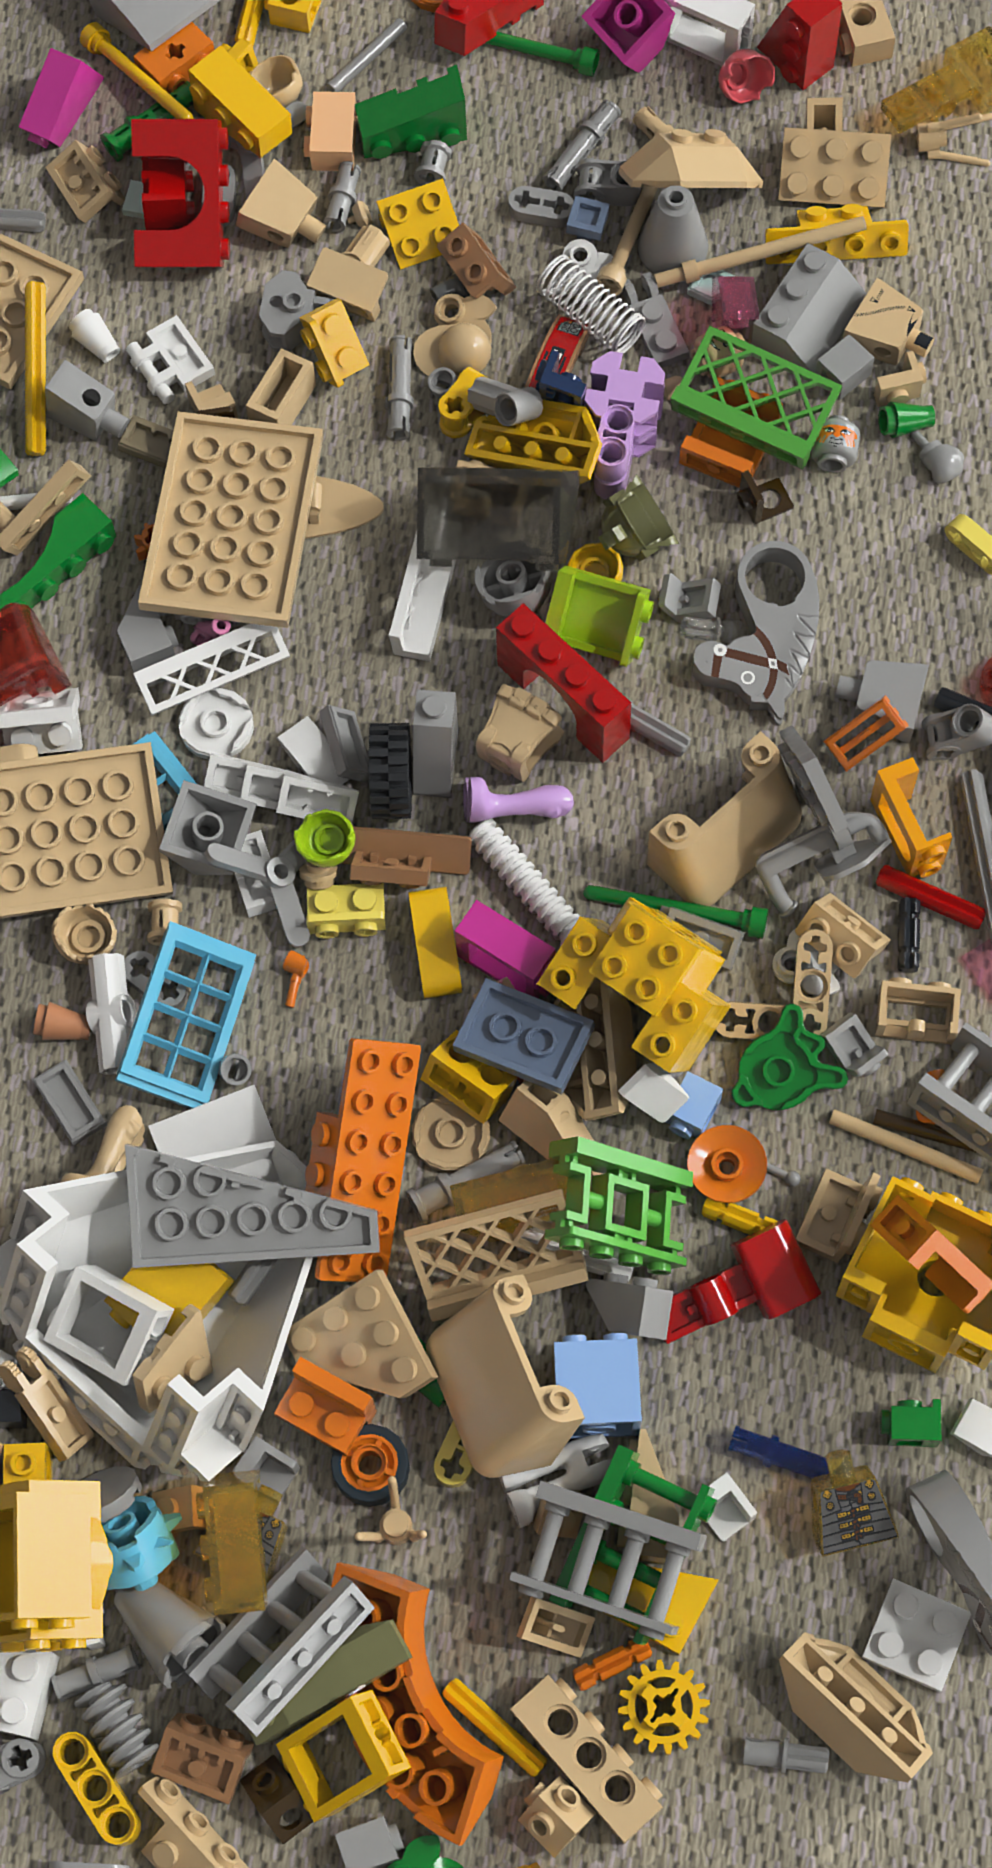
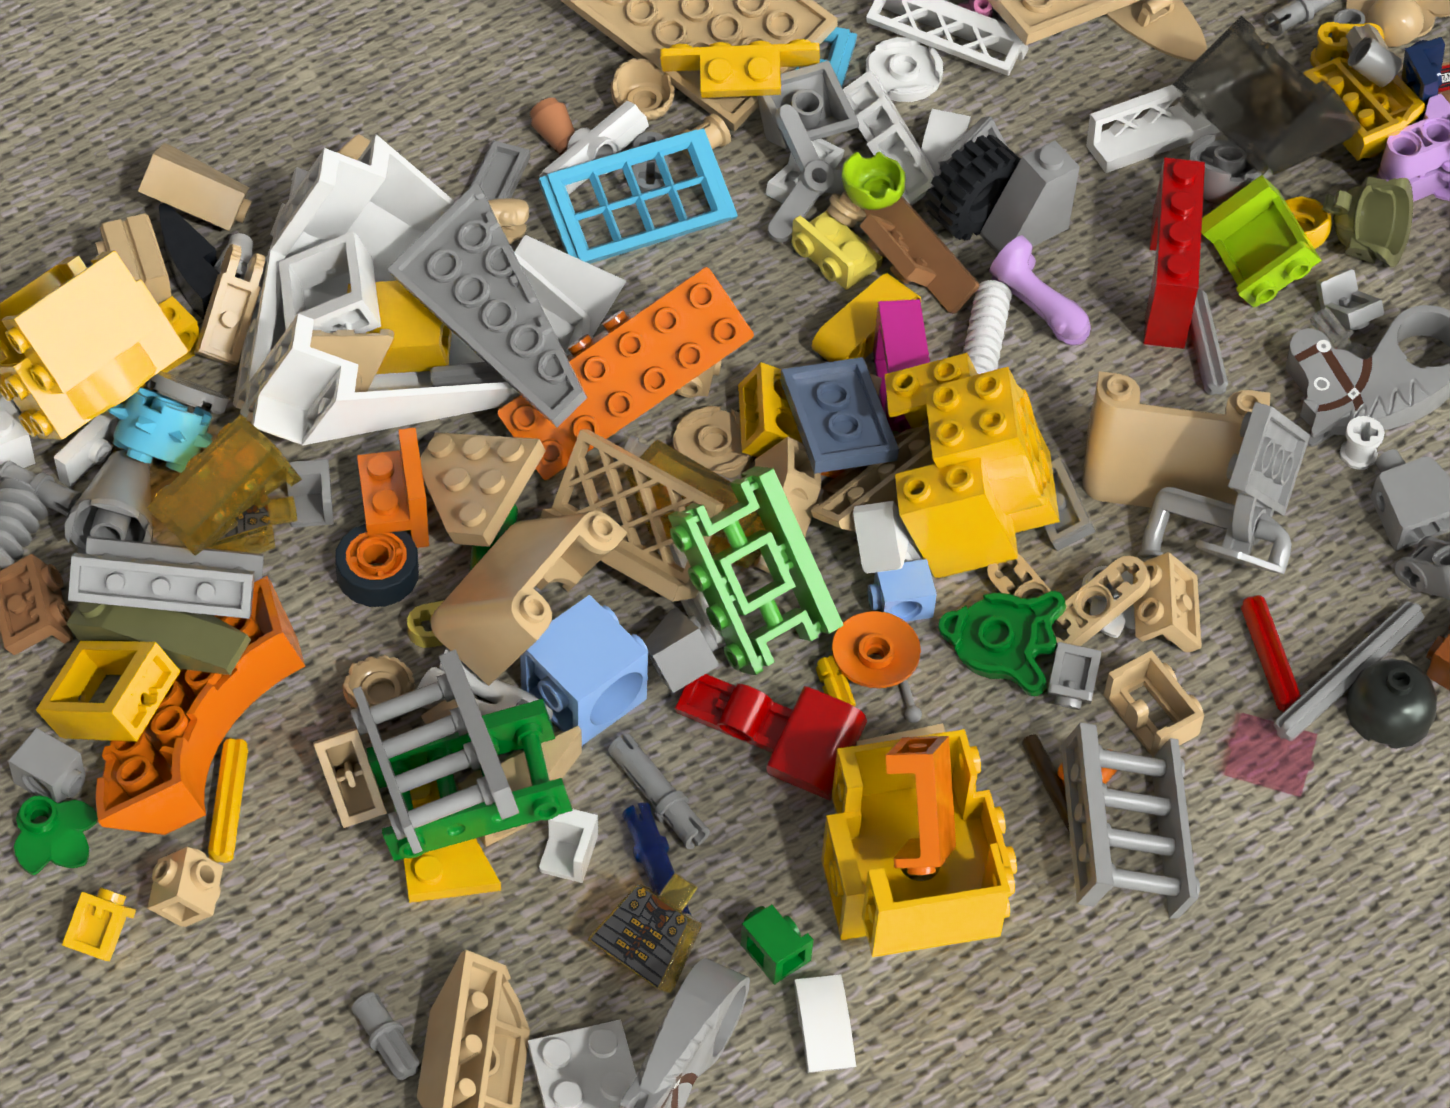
camera: 45 degrees right, 15 degrees down
(143, 854) = (740, 69): none -> yellow bracket
(242, 1070) = (623, 252): light grey hinge -> none
(274, 1795) = (33, 670): dark brown bracket -> none
(298, 966) = (754, 250): orange hand -> none
(394, 1524) = (339, 612): tan plant -> none
(486, 1545) = (380, 680): none -> tan hair
(518, 732) = (1100, 256): tan piece -> none
(610, 1664) = (357, 851): orange axle -> none
(621, 1817) = (263, 817): tan brick -> none
(648, 1693) = (372, 913): yellow gear -> none
(726, 1408) = (669, 804): none -> light grey pin
(750, 921) = (1112, 534): green piece -> none
(811, 681) = (1363, 438): none -> white bush
(891, 714) = (1393, 500): orange tile -> none
(893, 789) = (1331, 552): light orange panel -> none
(906, 1146) = (1025, 781): tan bar -> none
(909, 935) = (1219, 658): black axle -> none

